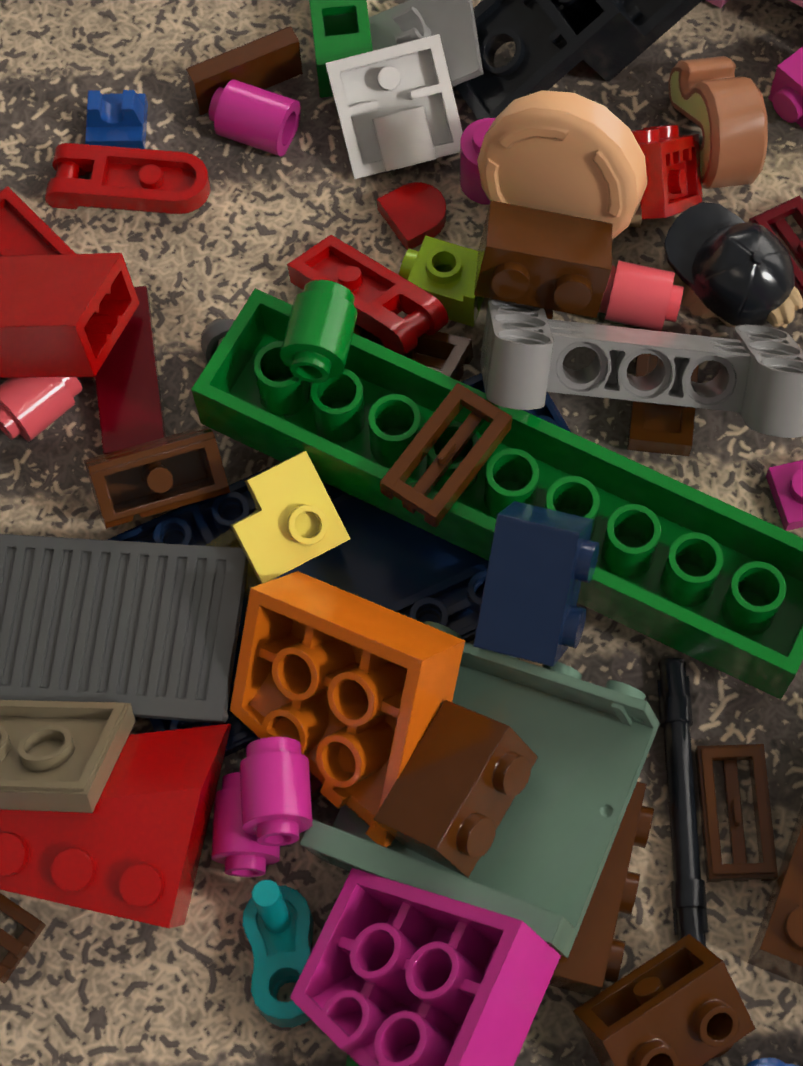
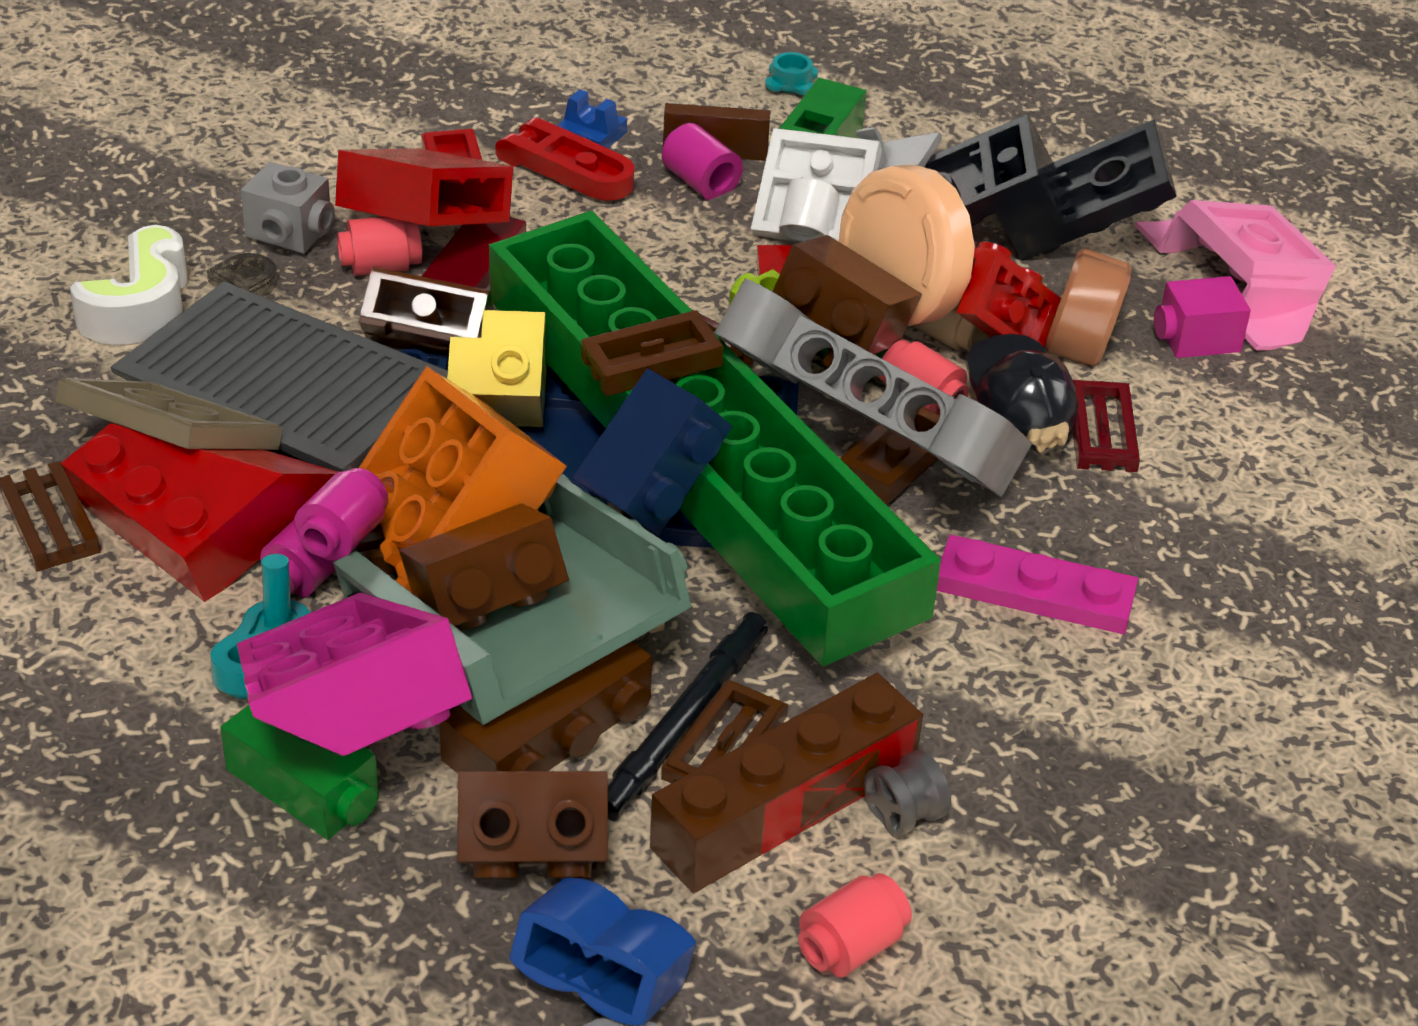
camera: 25 degrees right, 25 degrees down
(319, 331) = (613, 237): green brick -> none
(377, 293) = (693, 280): red plate -> none

